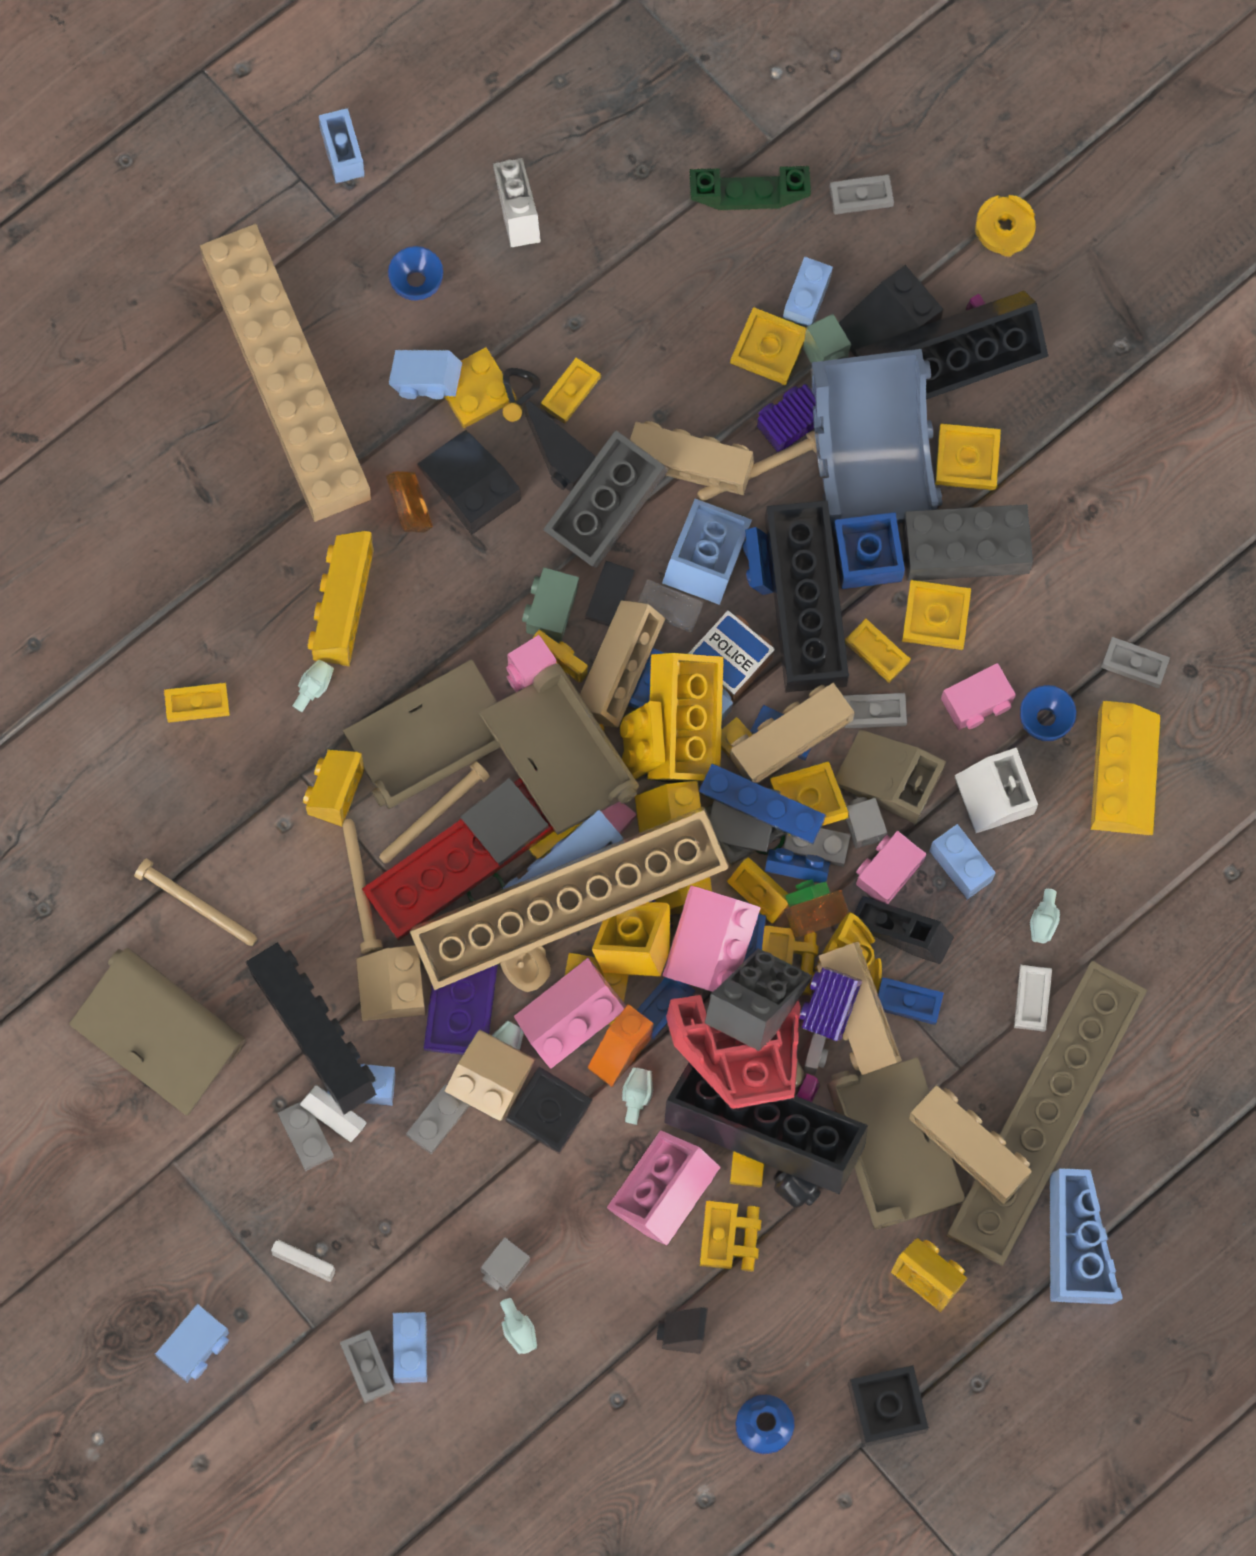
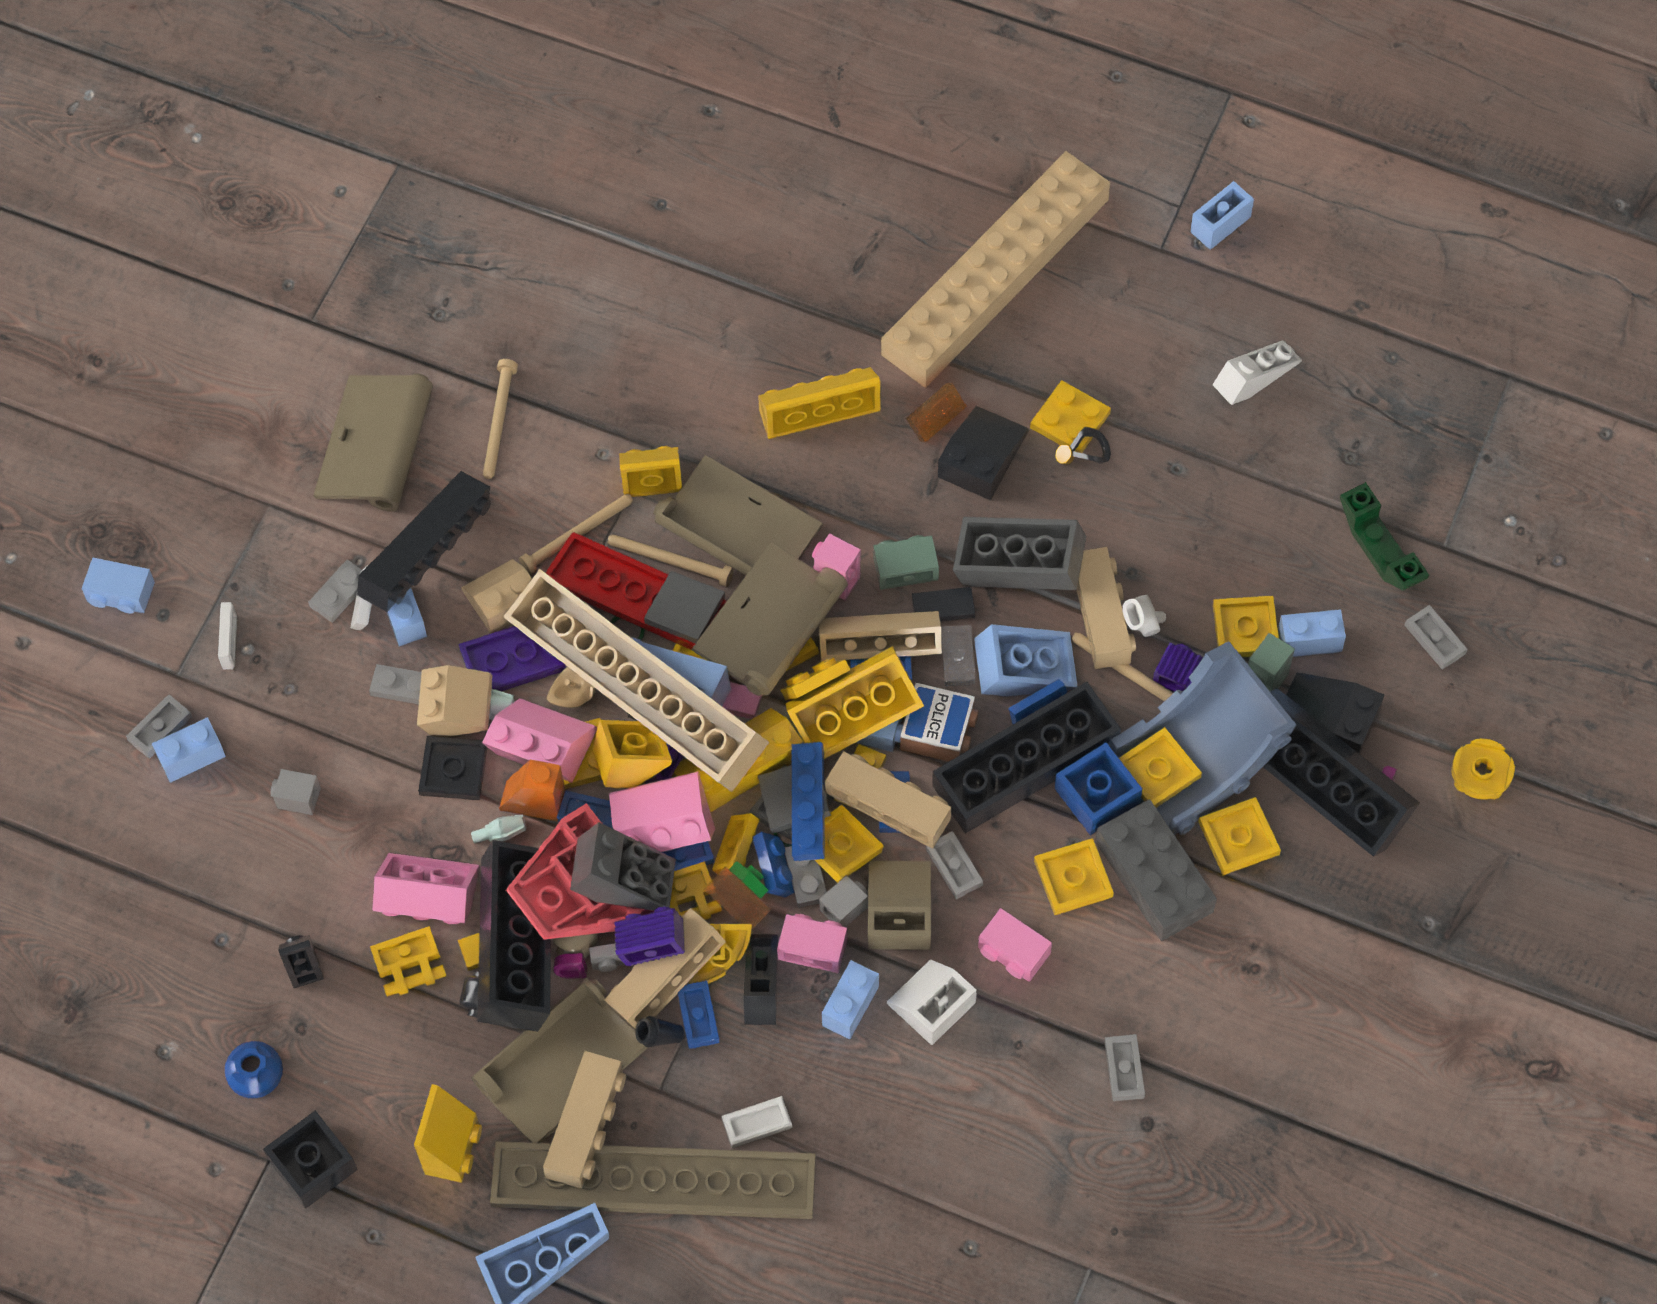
camera: 70 degrees right, 10 degrees down
(196, 702) = (671, 338): yellow plate -> none
(313, 684) = (734, 416): light aqua piece -> none
(415, 260) = (1142, 312): blue piece -> none
(425, 373) = (1054, 368): light blue brick -> none
(518, 1328) = (246, 829): light aqua piece -> none
(561, 452) = (1052, 496): black slope -> none
(564, 656) = (864, 587): yellow plate -> none
(570, 390) = (1110, 489): yellow plate -> none
(720, 426) = (1142, 616): none -> white piece
(873, 487) = (1160, 767): none -> yellow plate
(877, 650) = (1012, 842): yellow plate -> none
(913, 1043) = (657, 1032): none -> black cone
(1045, 918) = (837, 1097): light aqua piece -> none
(1051, 699) = (1033, 996): blue piece -> none
(1125, 769) = (1016, 1103): yellow slope -> none

